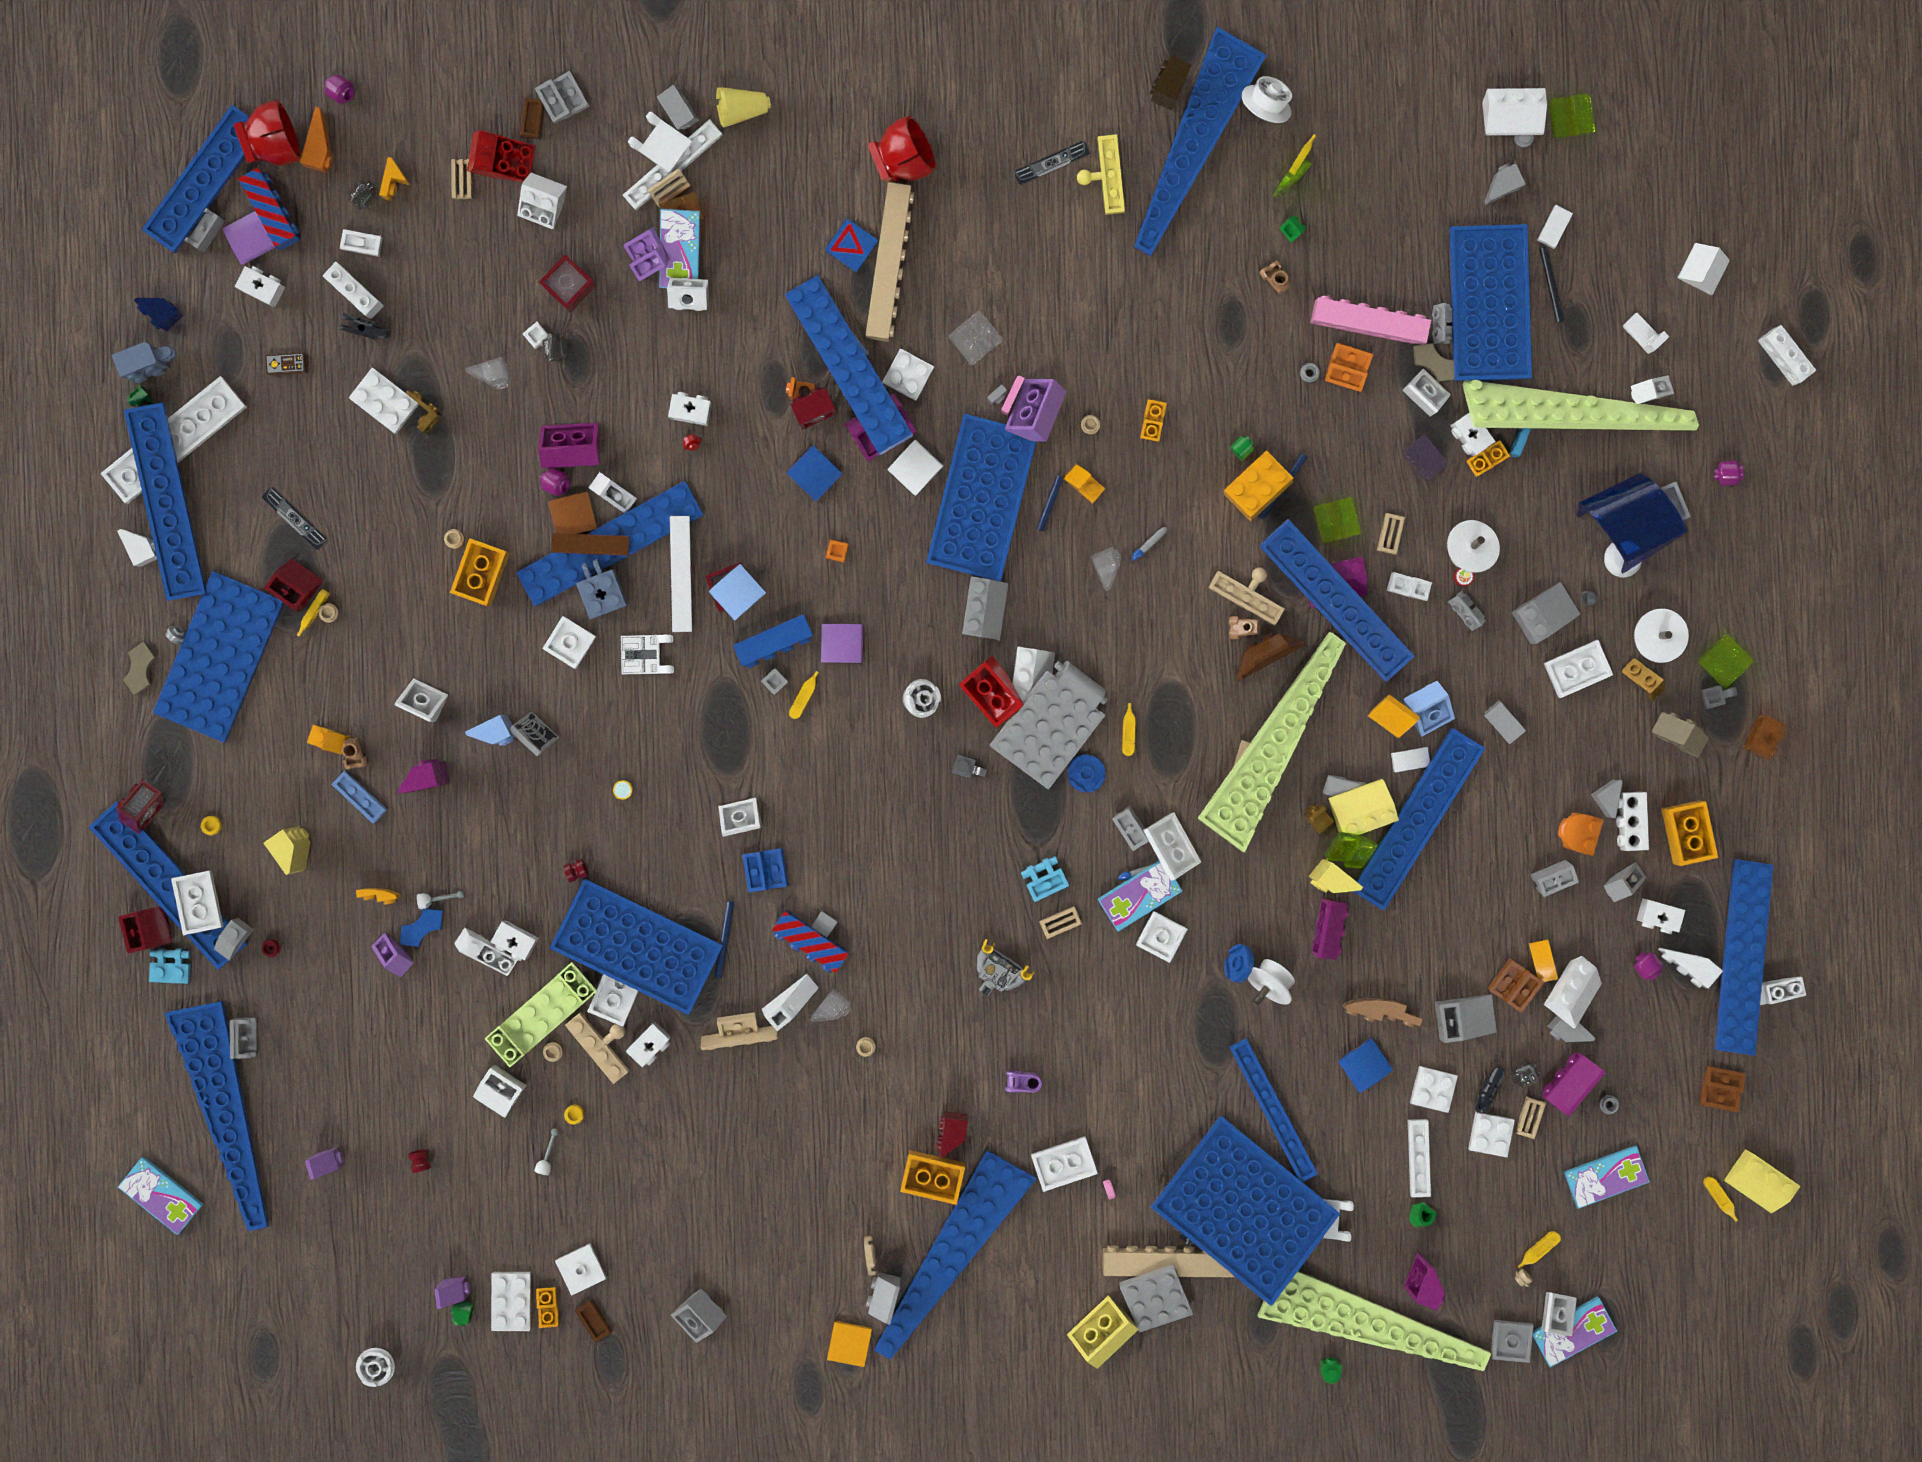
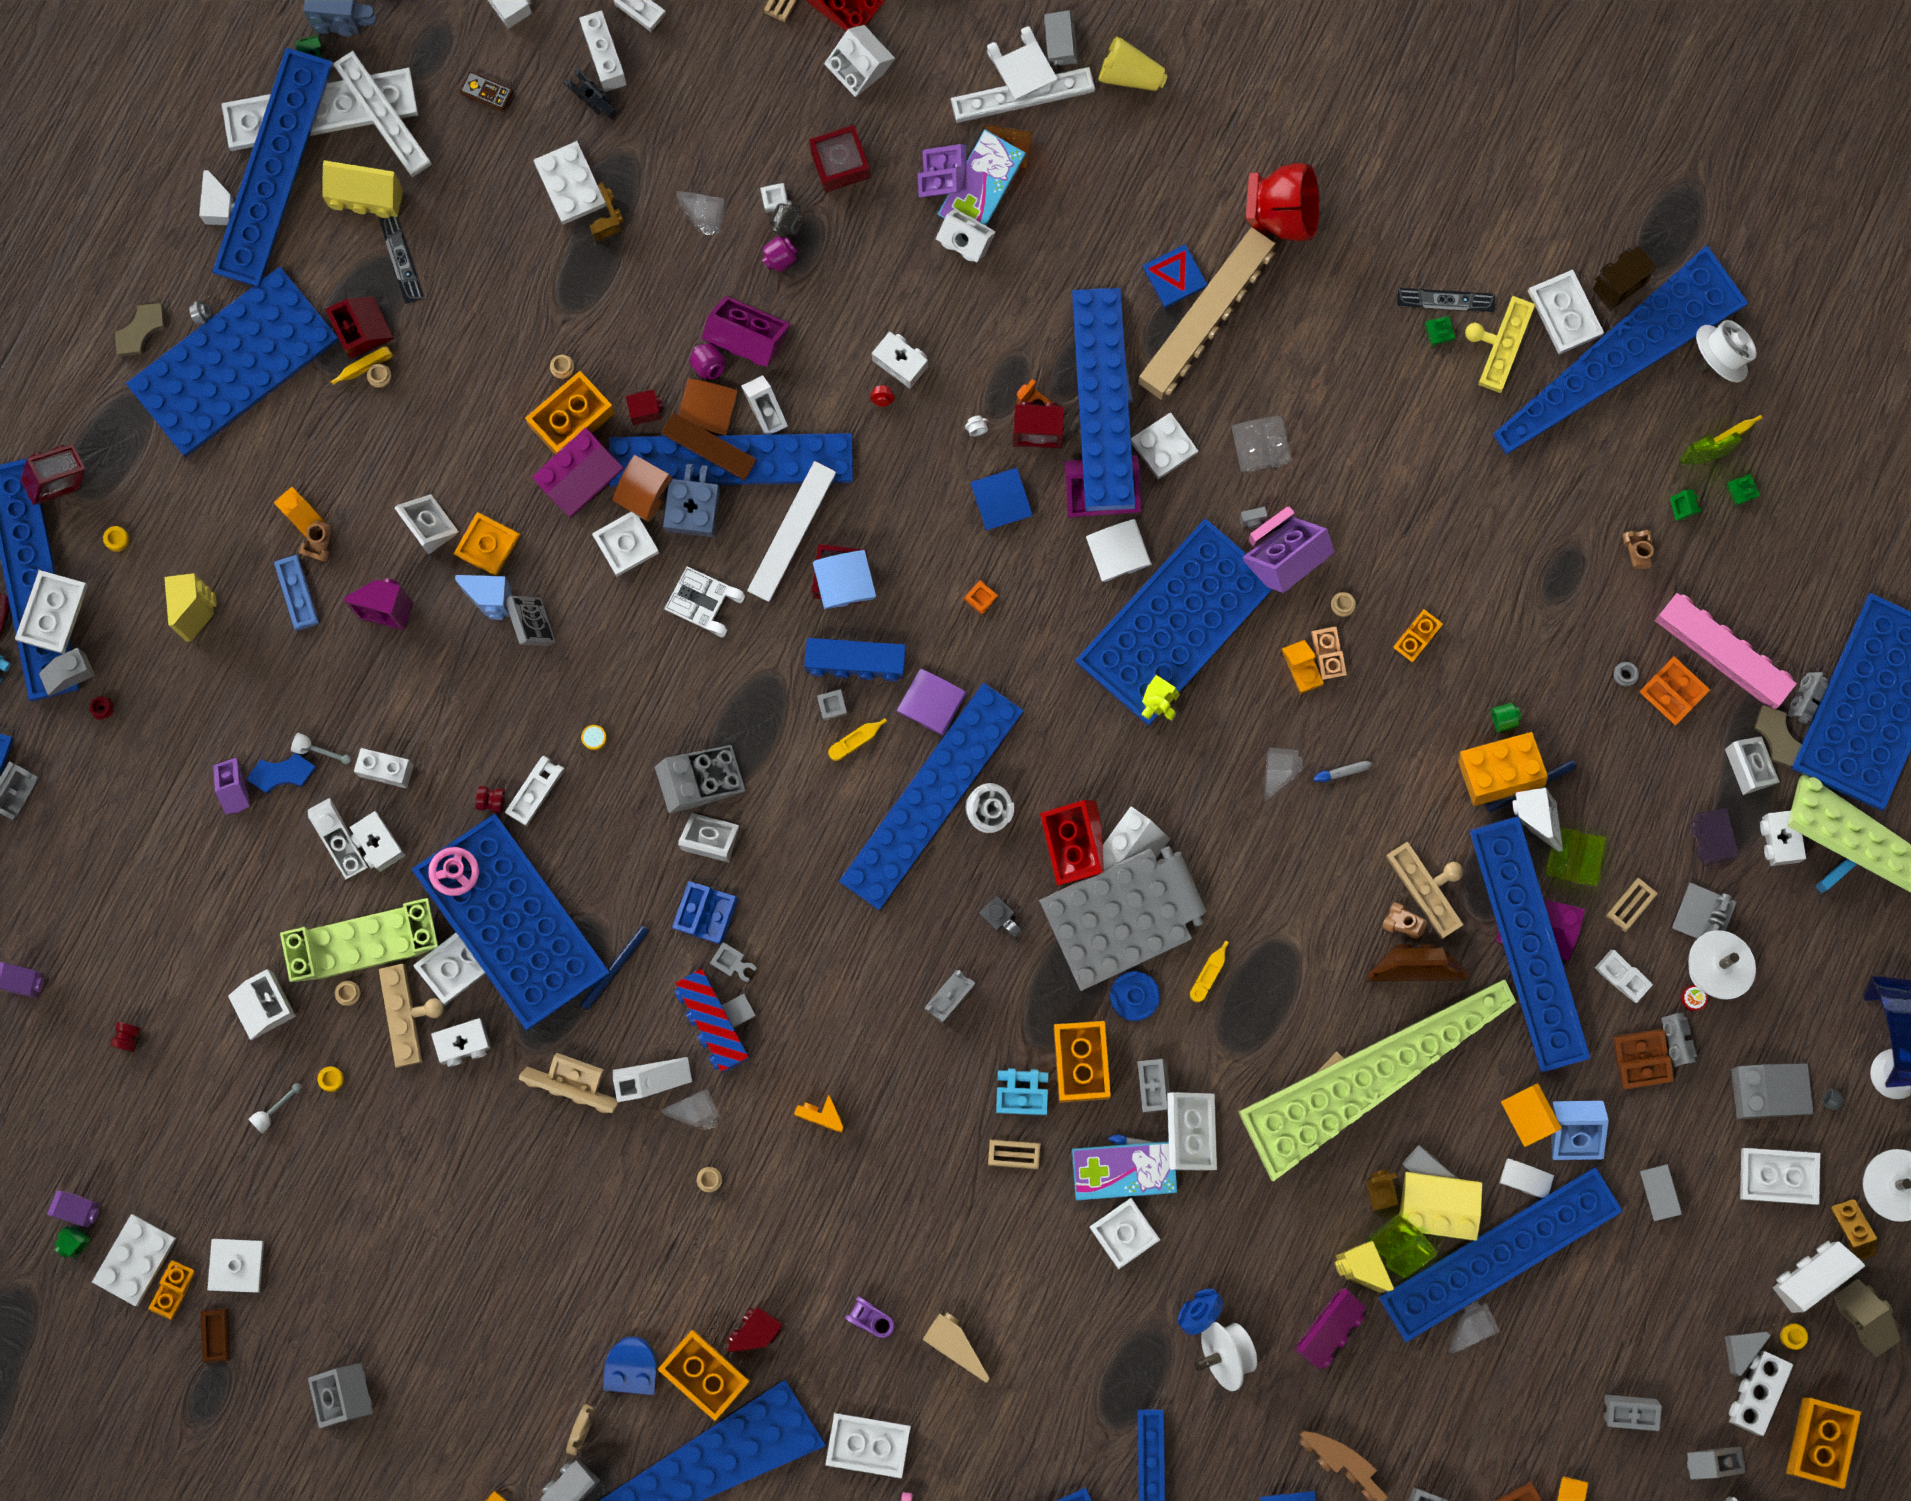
camera: 25 degrees right, 10 degrees down
(220, 421) = (382, 114): none -> white tile
(238, 485) = (361, 189): none -> light yellow slope
(385, 895) = (258, 712): light orange slope -> none
(472, 693) = (487, 544): none -> light orange tile
(490, 888) = (383, 768): none -> white brick
(508, 610) = (577, 472): none -> magenta slope
(528, 538) = (644, 407): none -> dark red brick
(559, 599) = (641, 488): none -> dark orange slope
(563, 376) = (779, 254): none -> magenta head
(593, 938) = (453, 862): none -> bright pink piece
(602, 849) = (534, 791): none -> white plate
(665, 192) = (1007, 115): tan tile -> none
(711, 780) = (699, 778): none -> light grey slope
(769, 429) = (976, 426): none -> white plate
(799, 894) = (730, 960): none -> light grey plate
(876, 708) = (931, 796): none -> blue plate
(880, 1196) = (631, 1367): none -> blue slope
(924, 965) = (828, 1118): none -> light orange slope
(961, 840) = (950, 996): none -> light grey hinge
(985, 608) = (1115, 746): light grey slope -> none
(998, 561) = (1158, 698): none -> neon yellow piece
(999, 970) = (912, 1170): torso -> none
(1050, 502) = (1251, 668): dark blue bar -> none
(1059, 188) = (1439, 331): none -> green tile
(1074, 838) = (1082, 1061): none -> light orange brick
(1085, 1069) = (952, 1342): none -> tan slope
(1097, 464) = (1328, 653): none -> light nougat slope
(1140, 128) = (1565, 312): none -> white plate
(1302, 509) = (1540, 815): none -> white slope
(1327, 195) = (1742, 490): none -> green tile
(1423, 877) = (1472, 1327): none -> clear slope
(1442, 514) = (1703, 912): none -> light grey hinge
(1449, 636) = (1643, 1059): none -> dark orange slope
(1488, 458) = (1788, 876): light orange slope -> none
(1580, 833) = (1690, 1374): orange slope -> none
(1635, 725) = (1817, 1276): none -> white slope
(1636, 771) = (1794, 1336): none -> yellow tile

